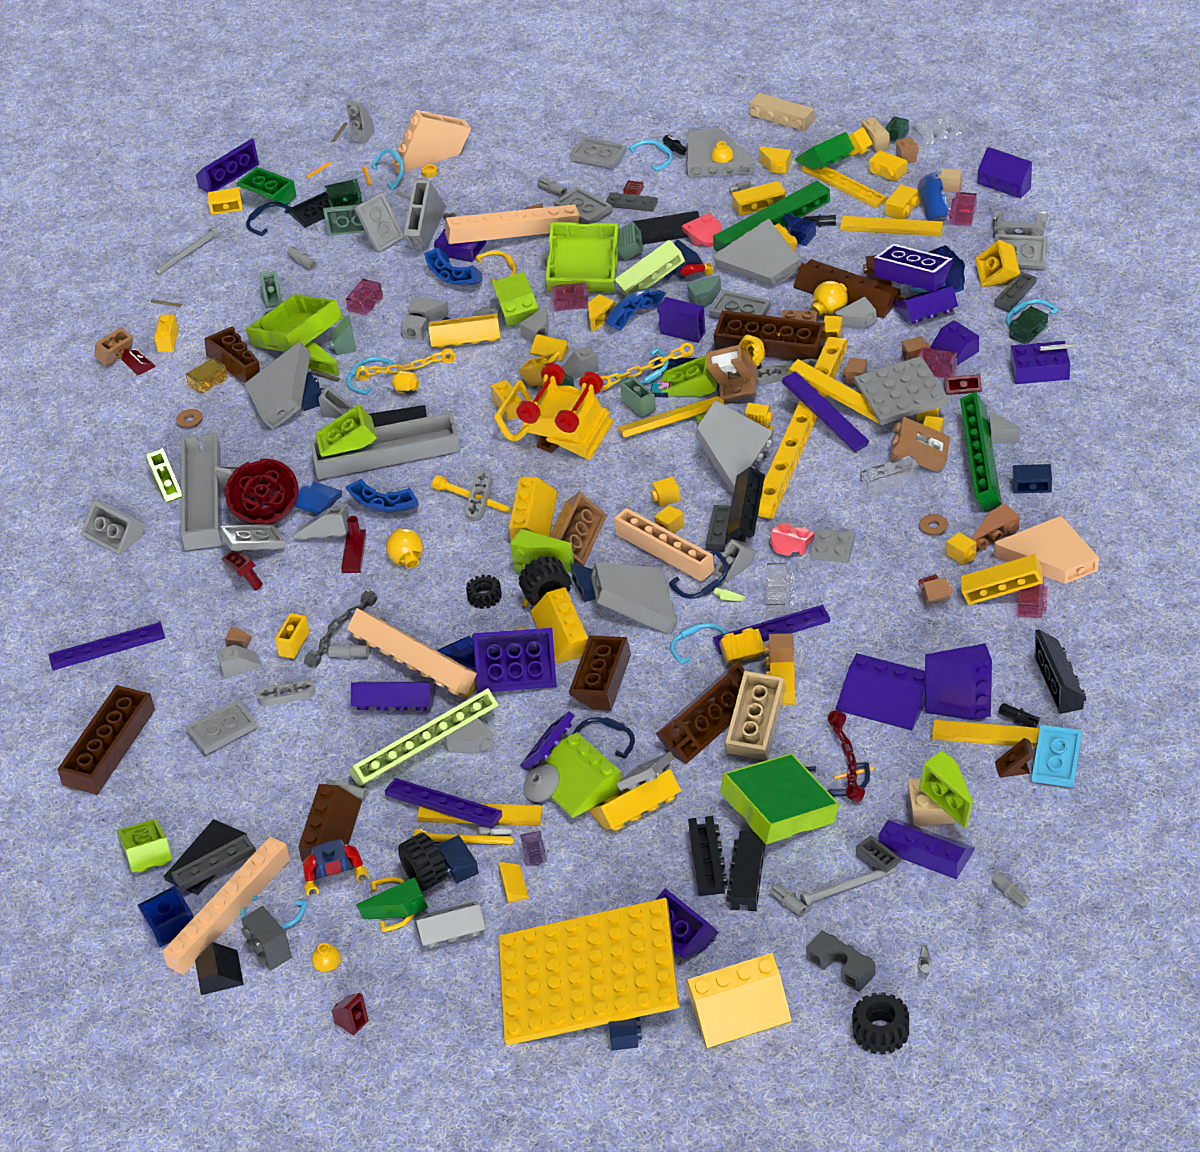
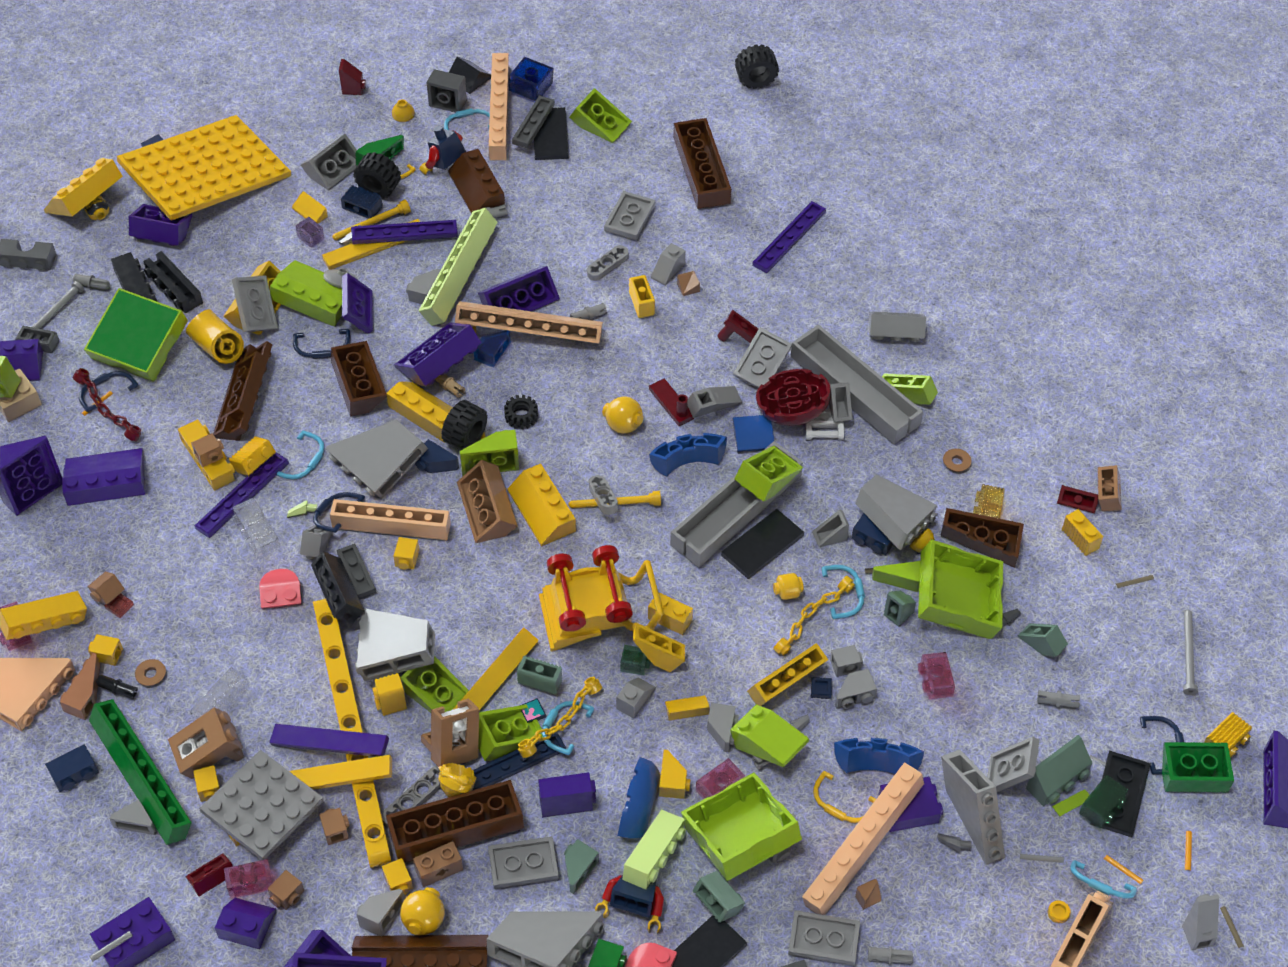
camera: 140 degrees right, 10 degrees up
(314, 658) = (615, 364): dark grey piece -> none
(665, 491) = (432, 583): yellow brick -> none
(703, 767) = (215, 337): none -> yellow brick
(755, 715) = (195, 388): tan brick -> none
(832, 545) = (236, 604): light grey plate -> none
(964, 520) = (117, 686): none -> black axle

